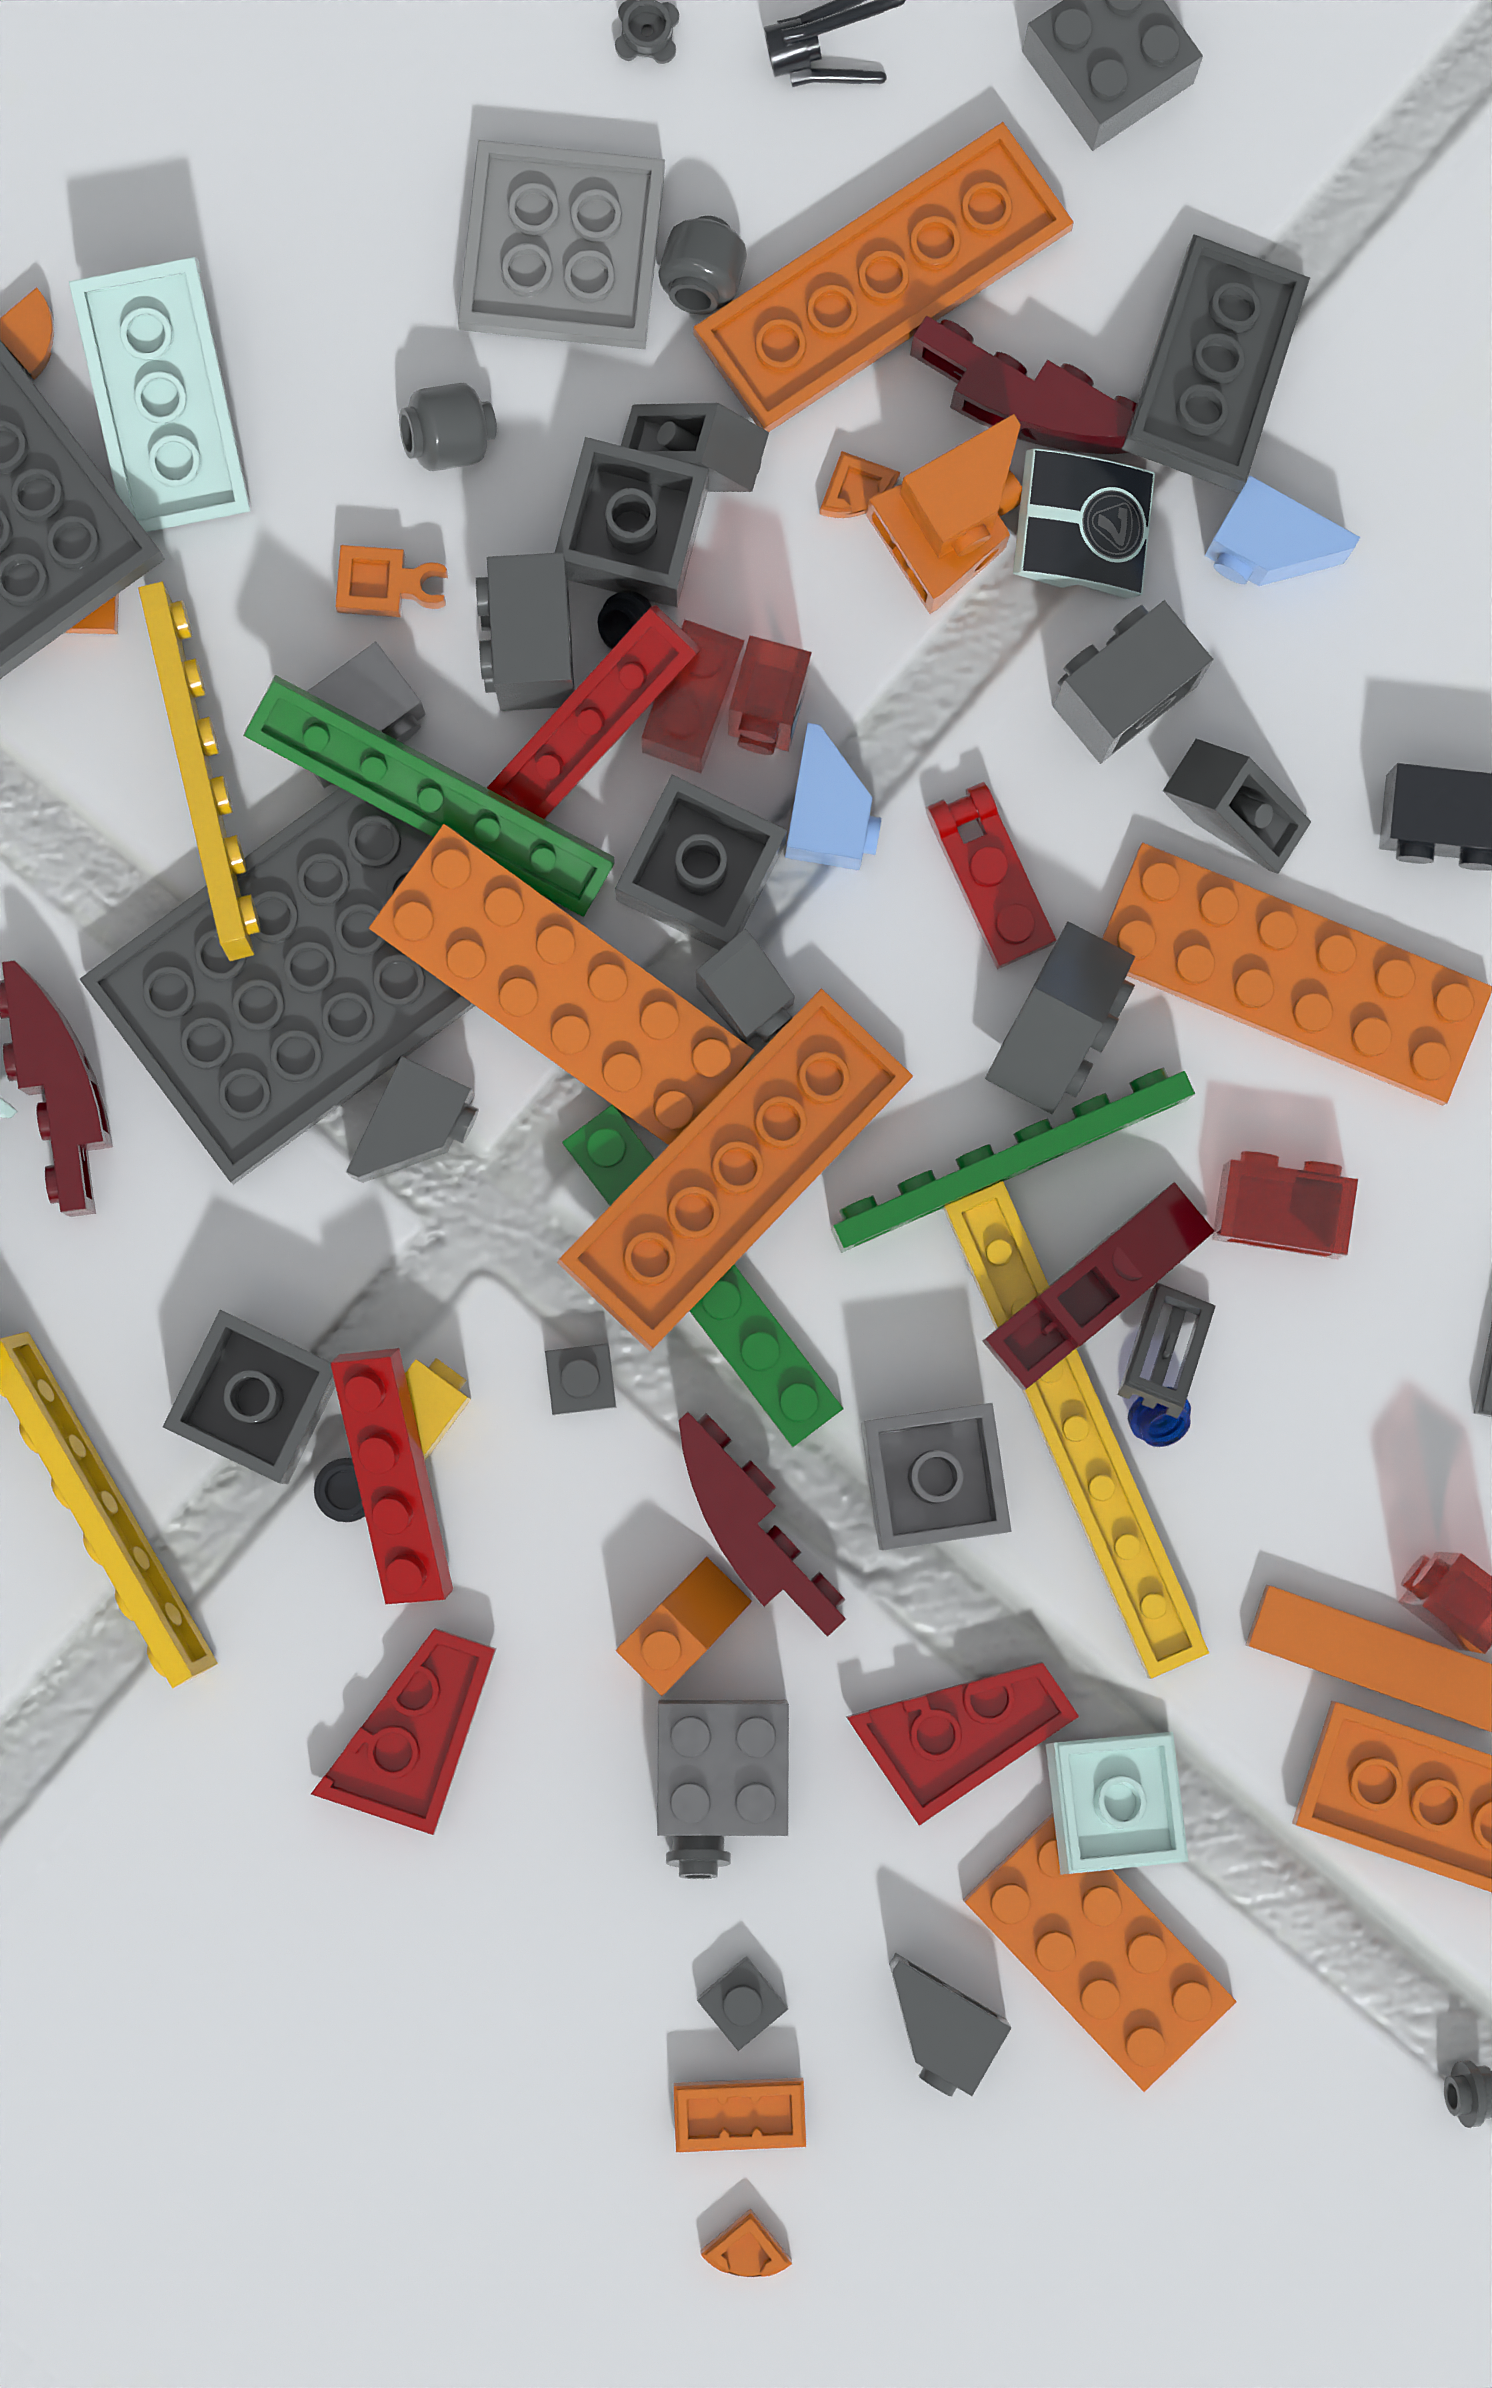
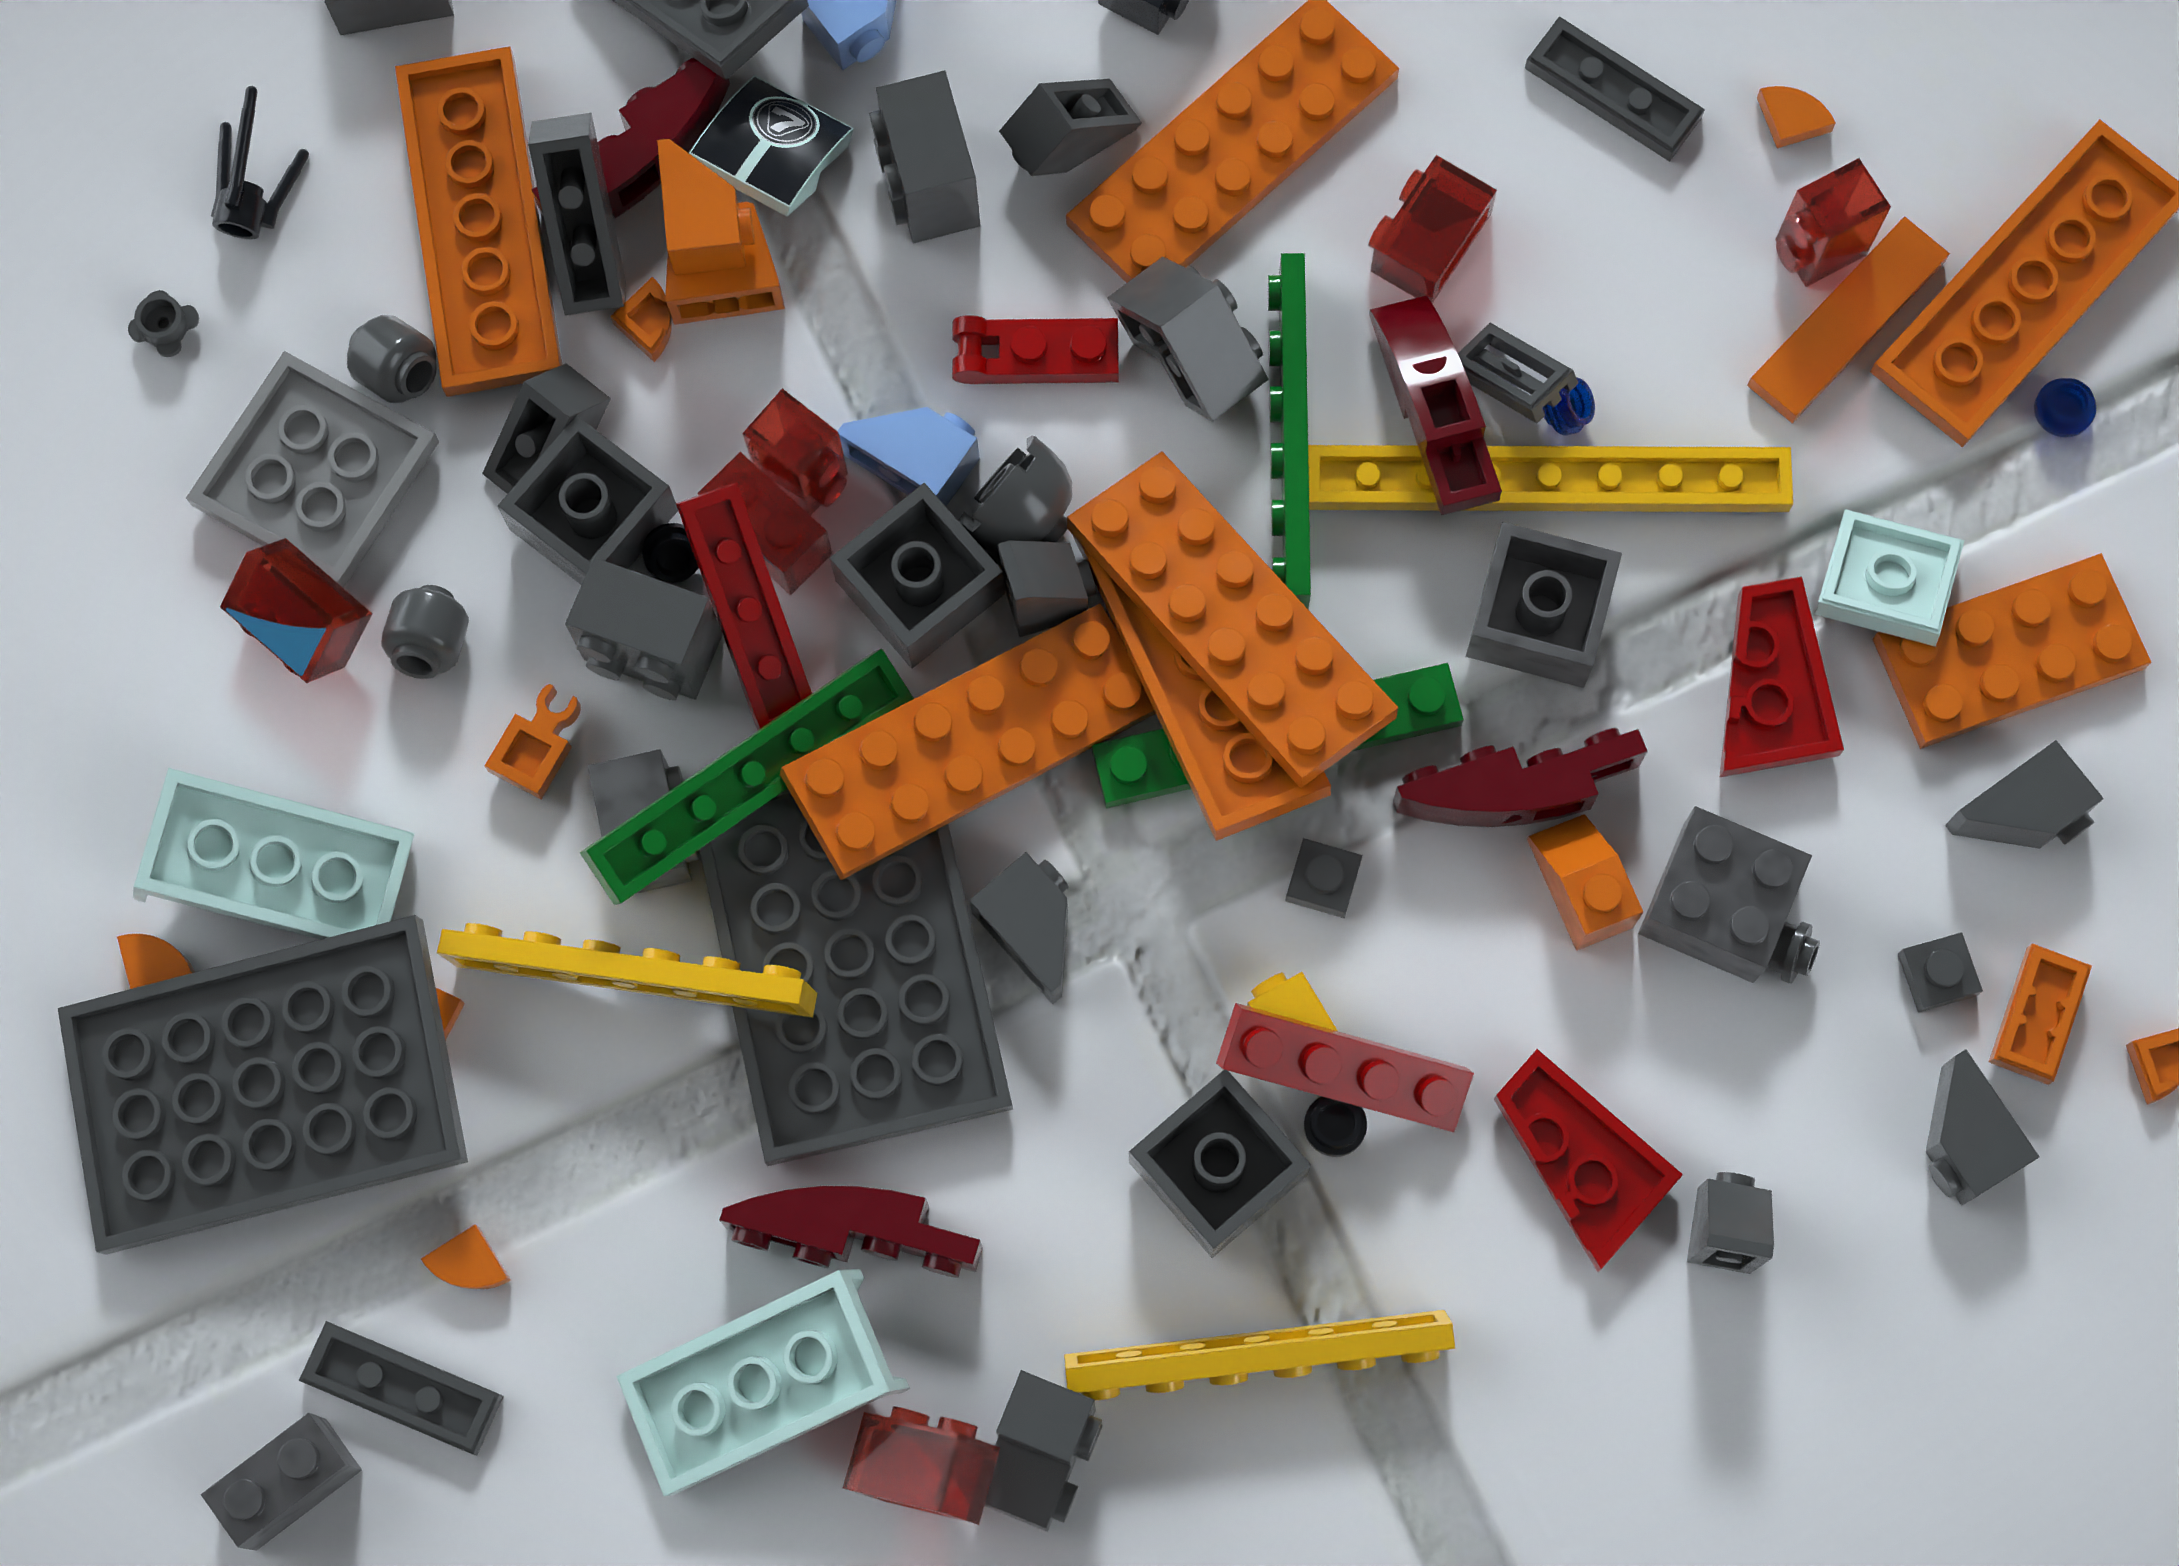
camera: 55 degrees left, 10 degrees down
(403, 1899) = (1732, 1224): none -> dark grey slope
(411, 297) = (295, 610): none -> clear red brick
(588, 2094) = (1972, 1133): none -> dark grey slope
(783, 1182) = (1232, 619): none -> orange plate
(819, 930) = (1022, 499): none -> dark grey cylinder
(913, 371) = (577, 213): none -> dark grey brick
(1378, 1909) = (2065, 407): none -> clear blue plate

